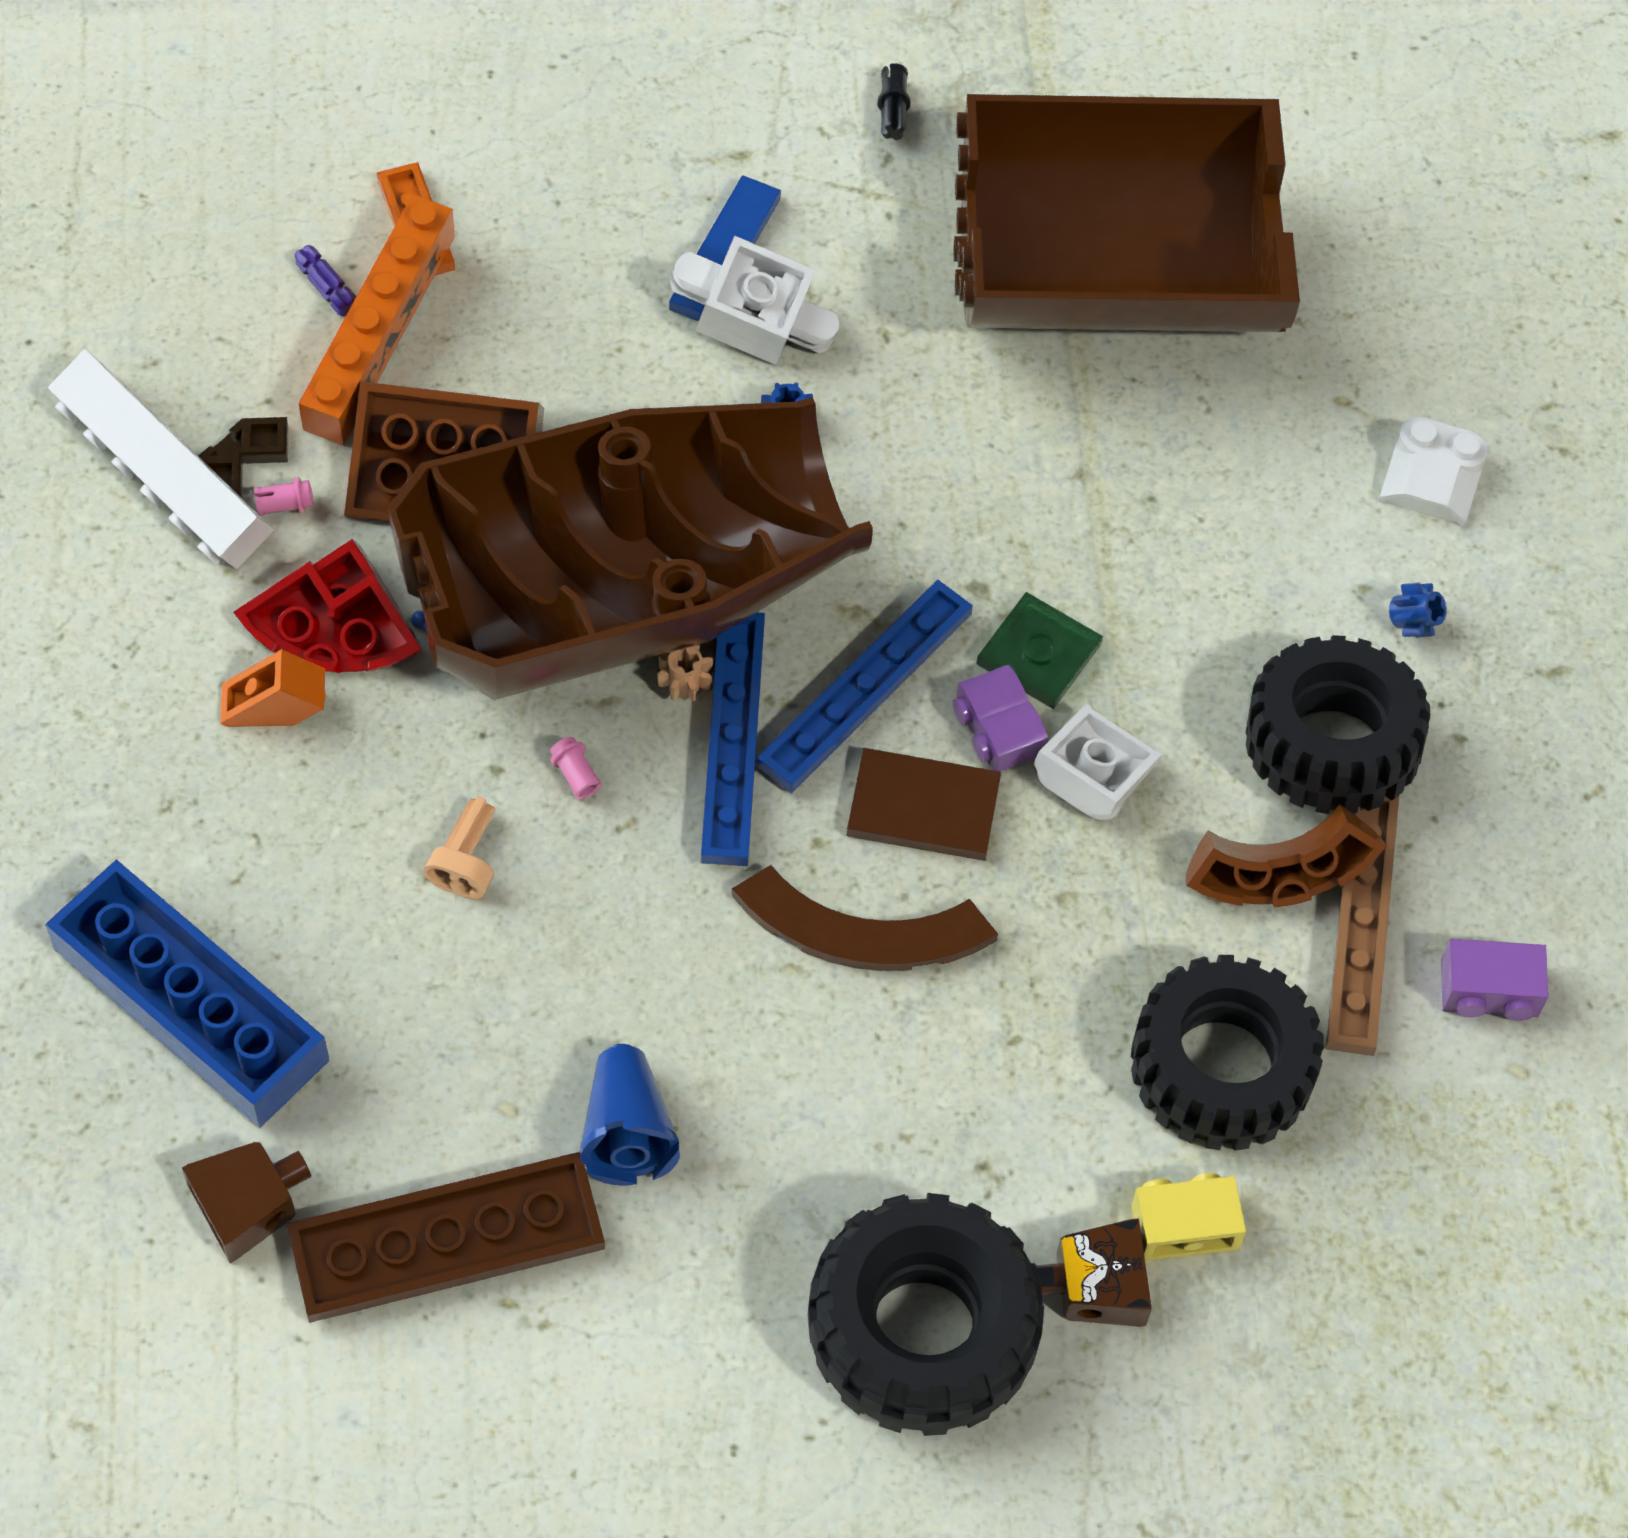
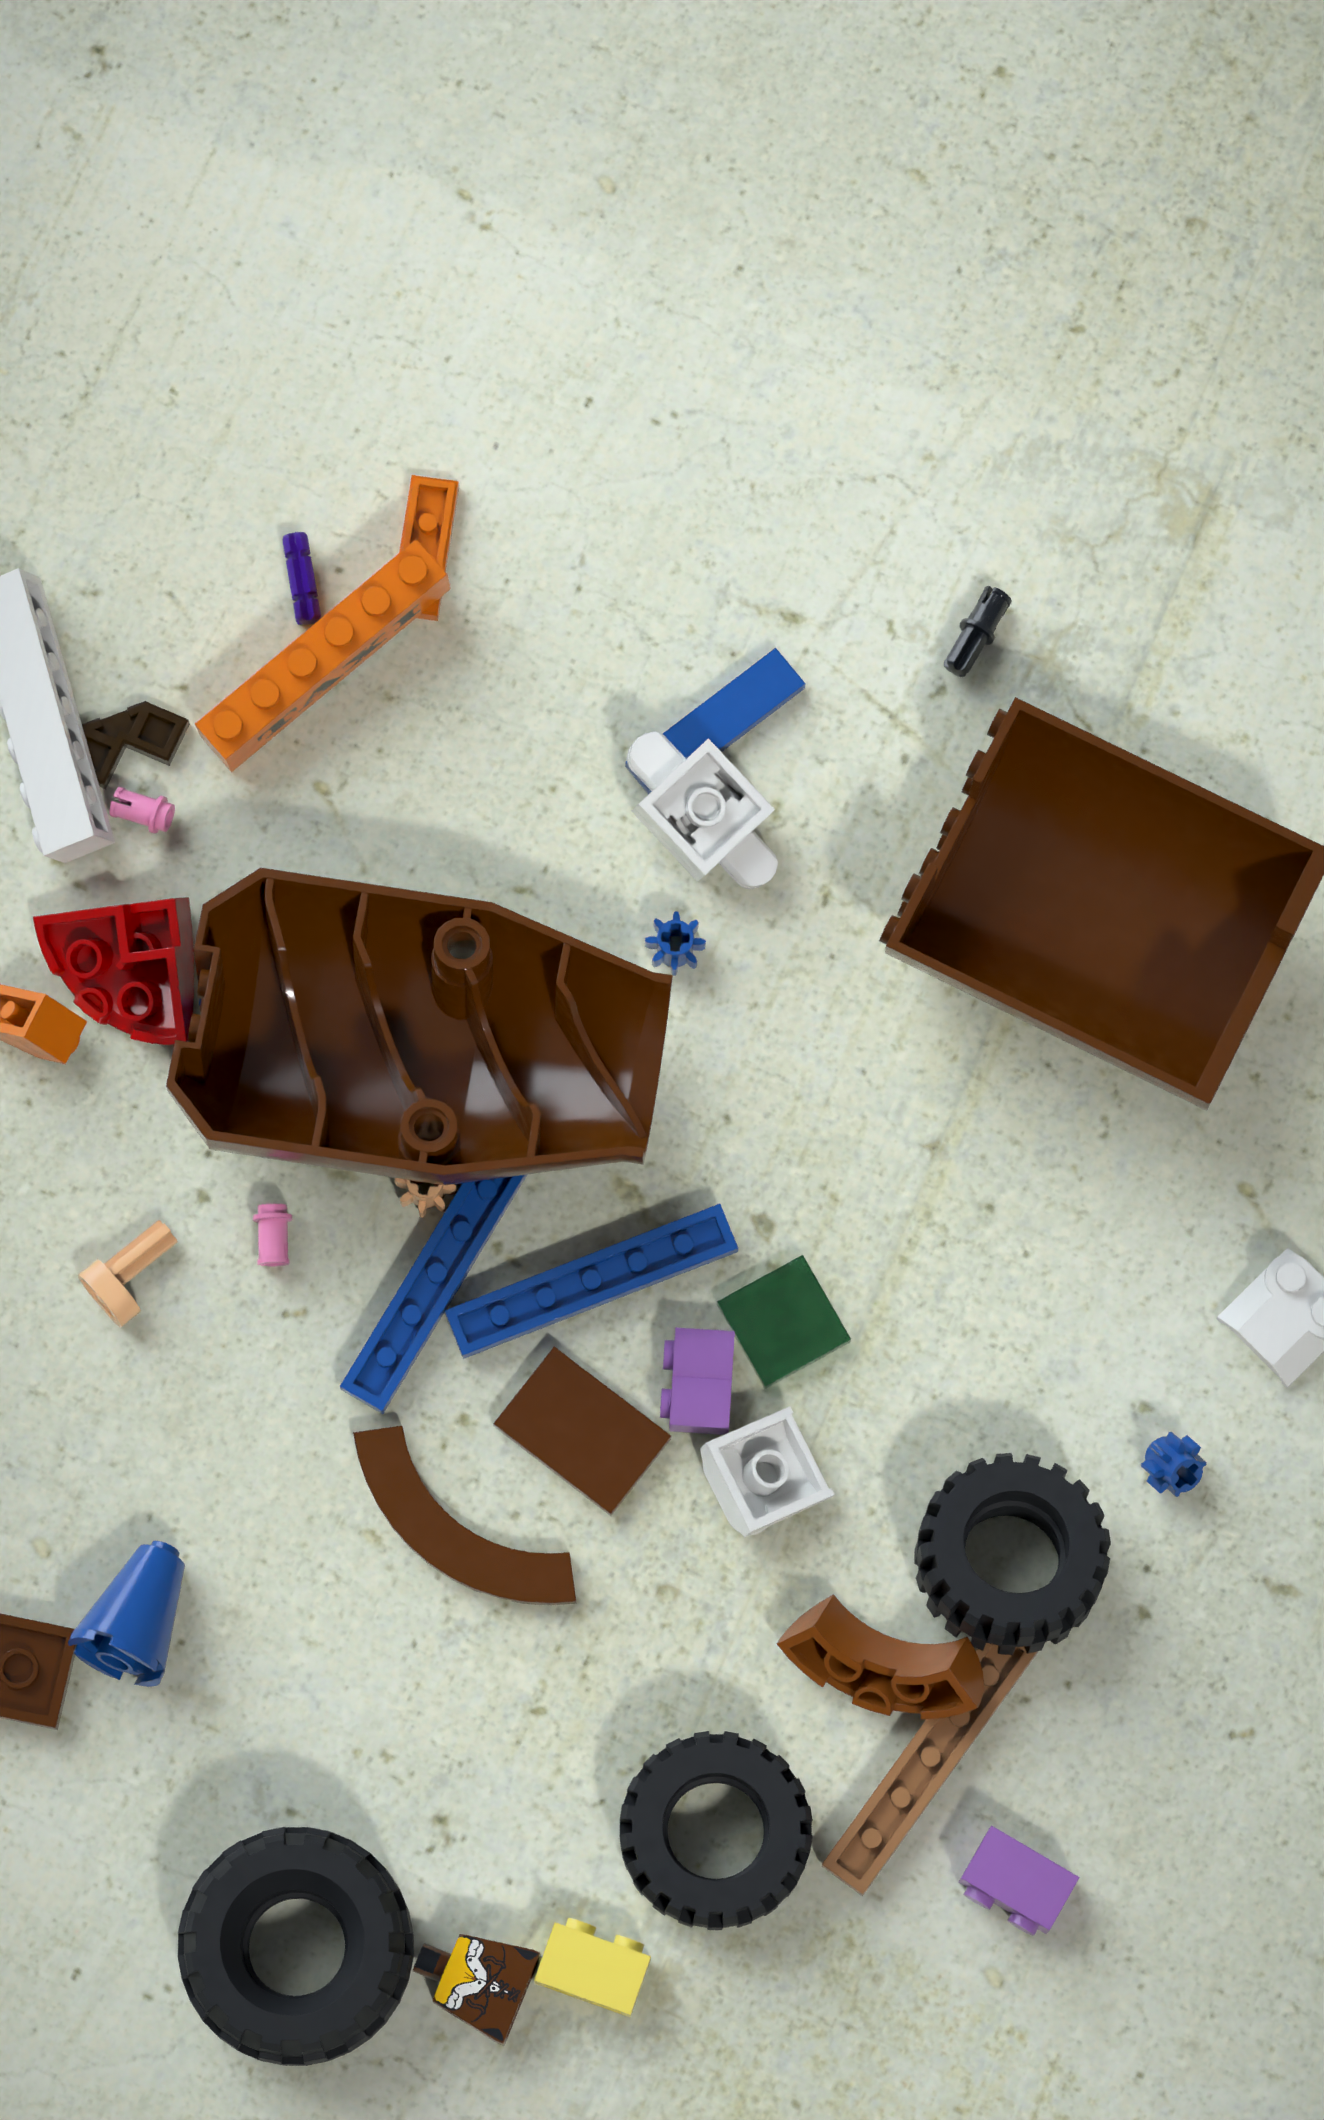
camera: 30 degrees right, 15 degrees up
(416, 425) = (310, 818): dark orange slope -> none

